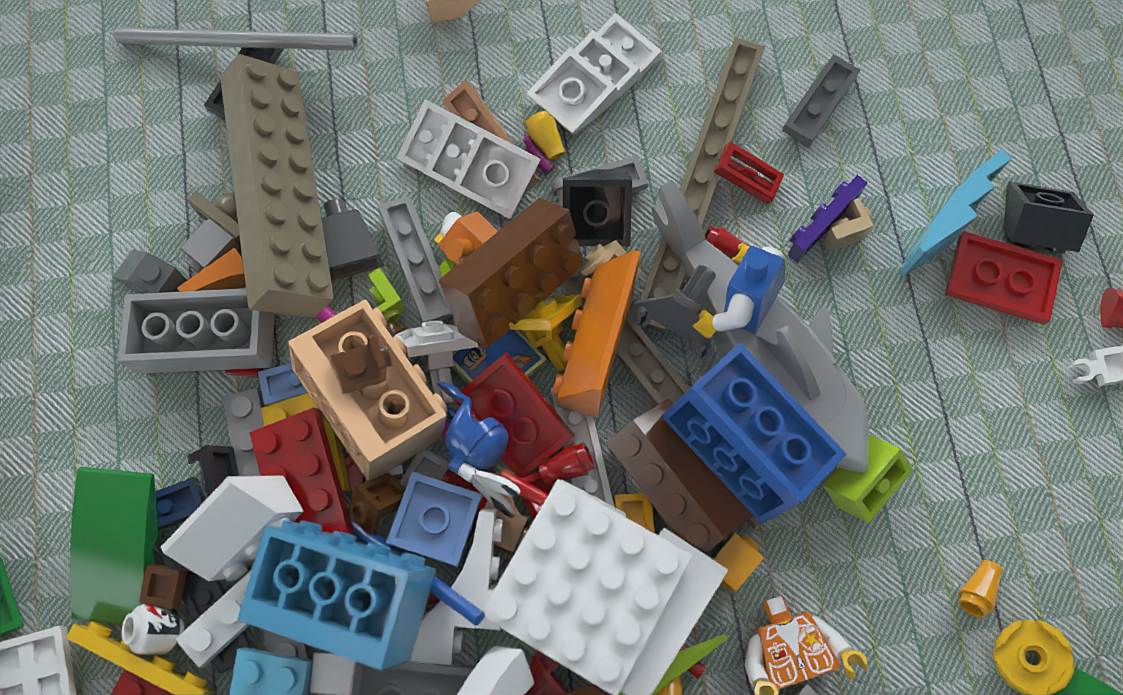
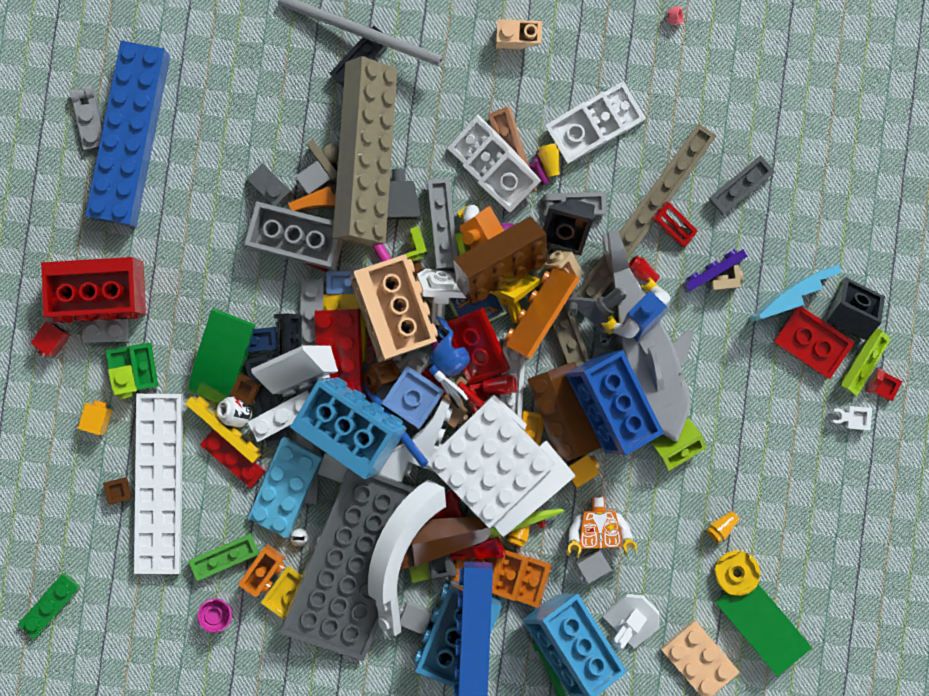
camera: 20 degrees right, 15 degrees up
(361, 365) = (394, 299): reddish brown bracket -> none
(1088, 285) = (865, 362): none -> lime plate

